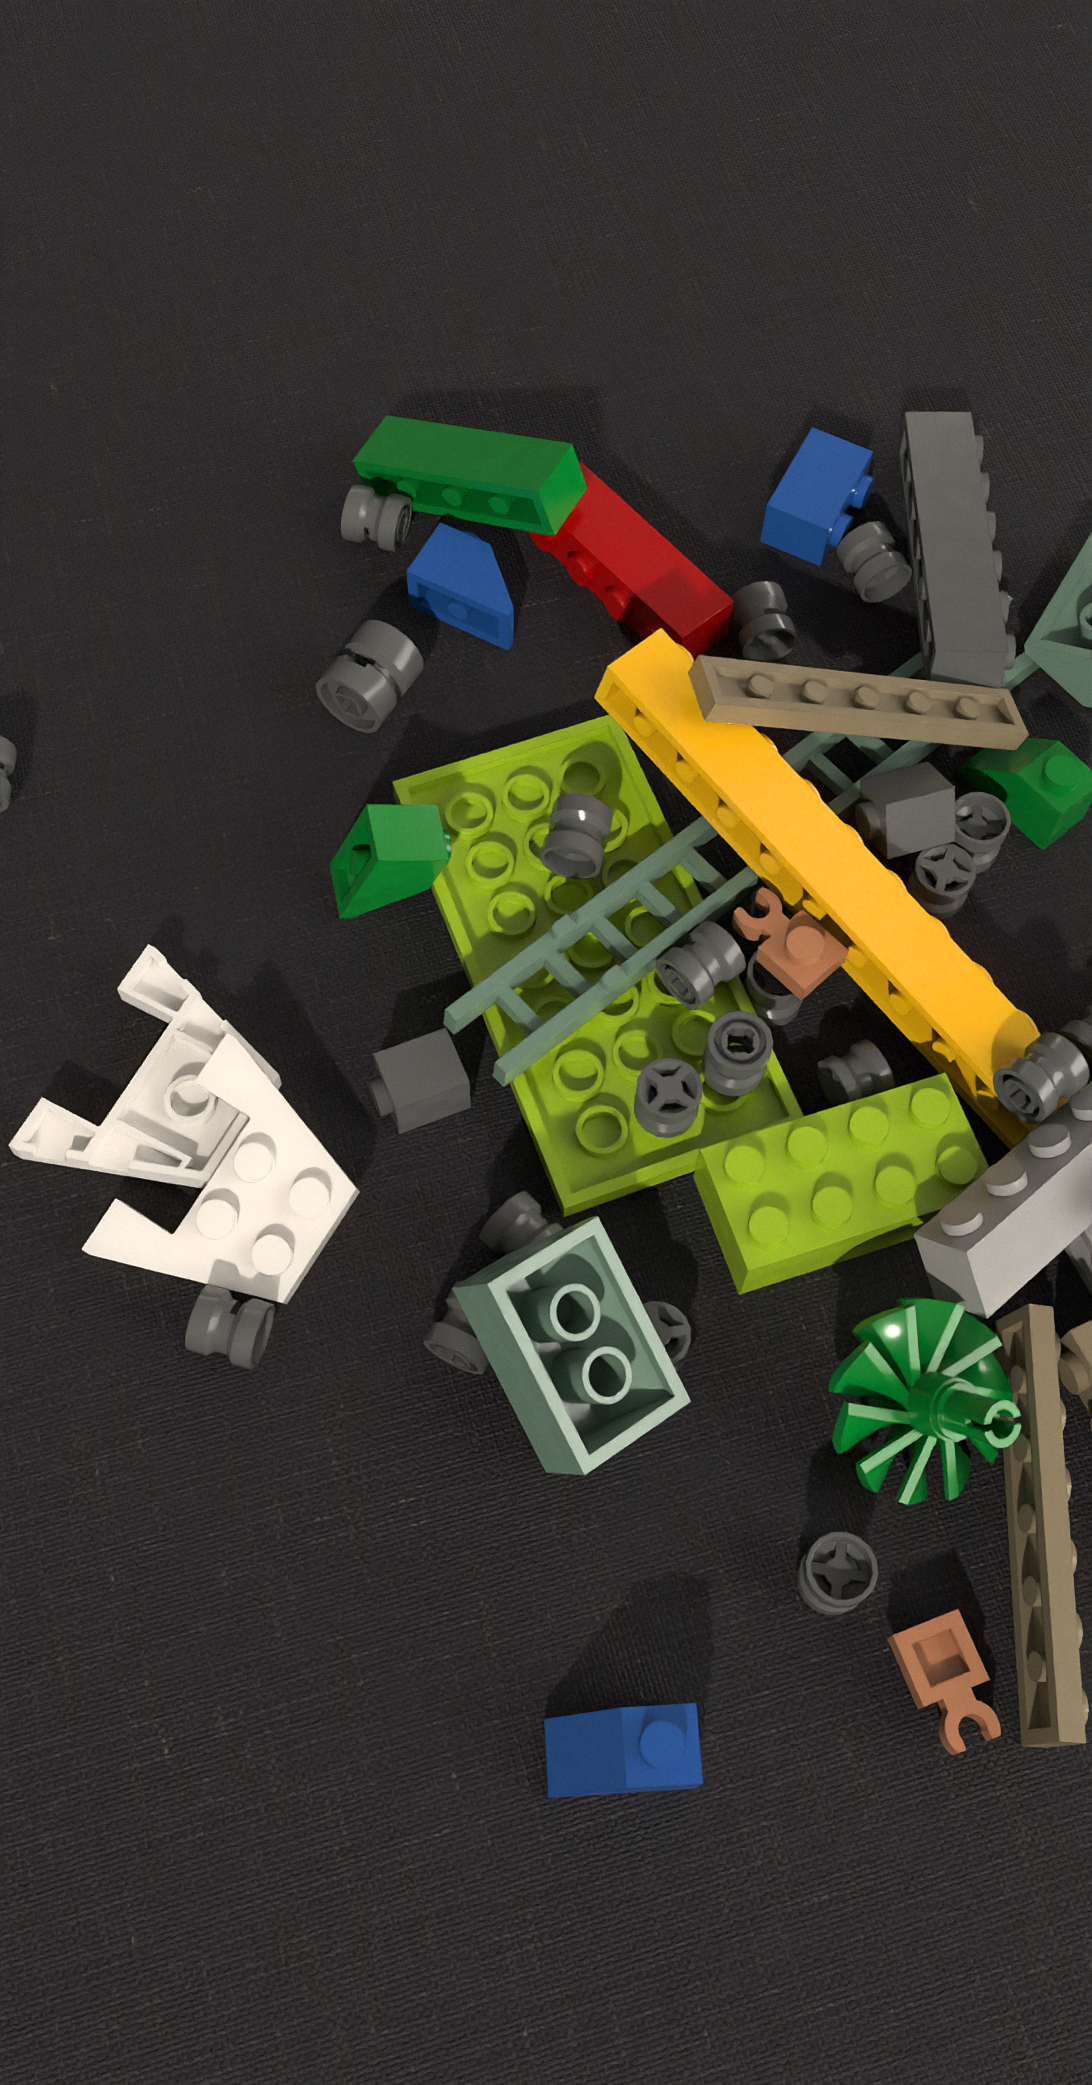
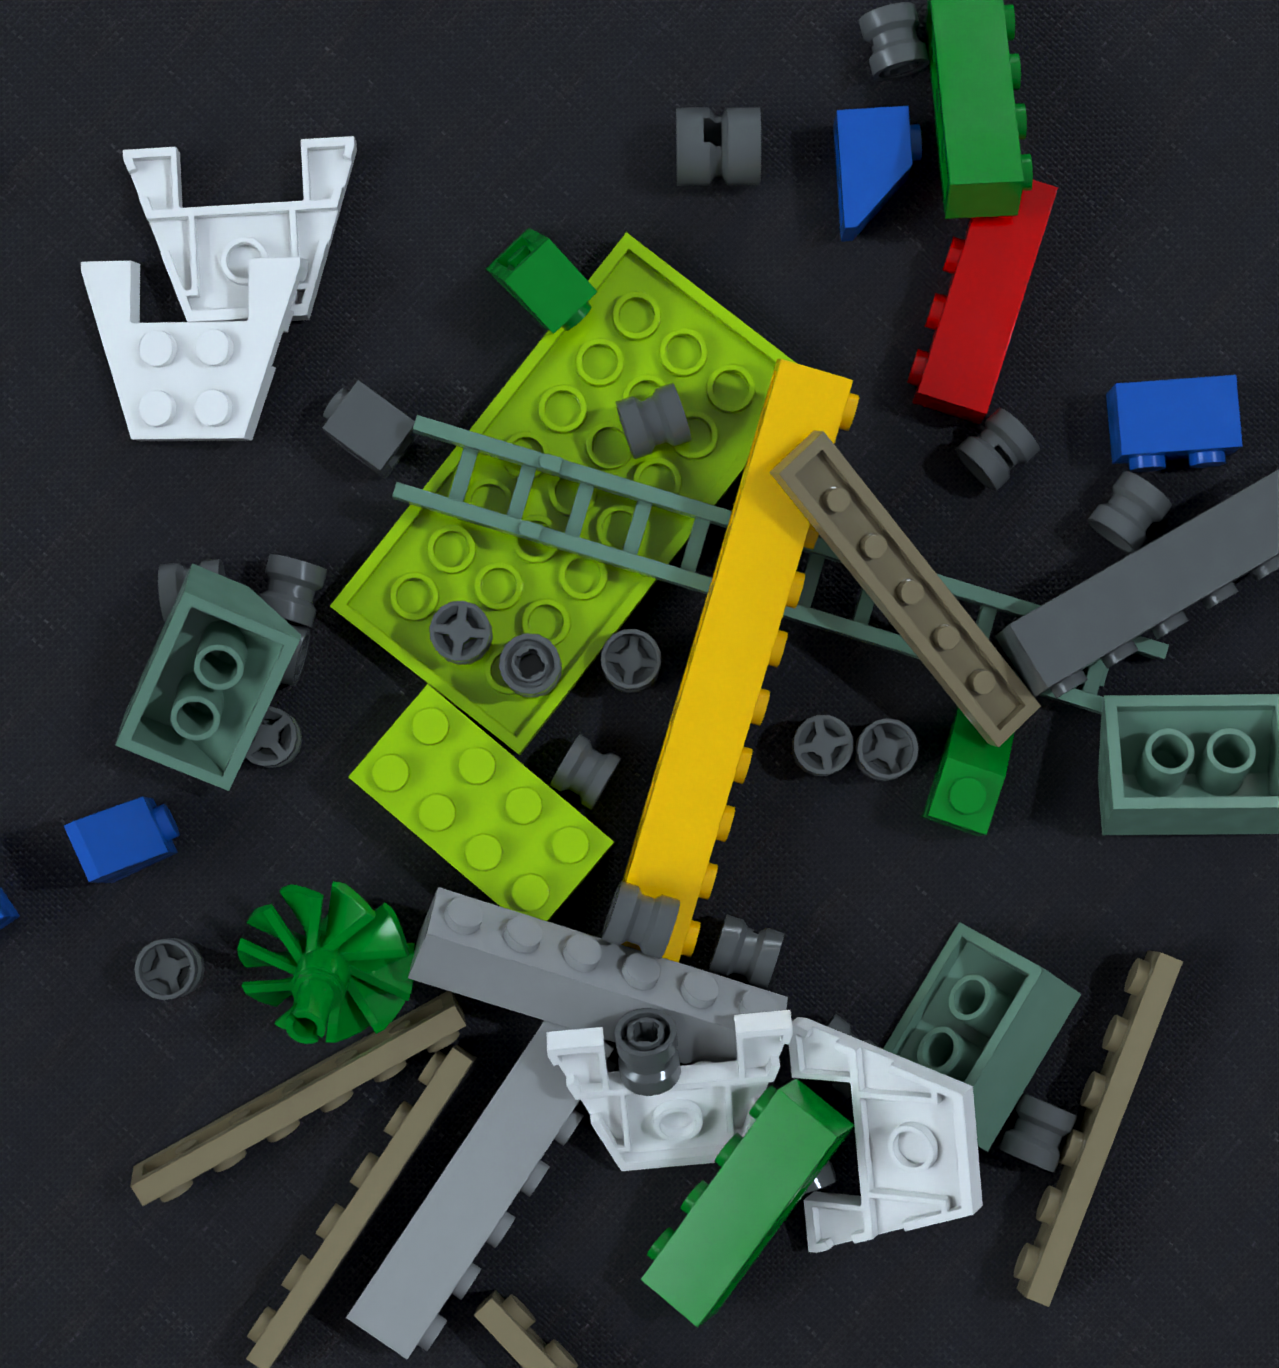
camera: 65 degrees right, 20 degrees up
(229, 1326) = (87, 413): dark grey wheel -> none
(681, 1536) = (123, 839): none -> blue slope
(701, 964) = (594, 593): dark grey wheel -> none
(792, 950) = (653, 661): nougat plate -> none
(906, 810) = (854, 680): dark grey brick -> none
(942, 1668) = (149, 1081): nougat plate -> none

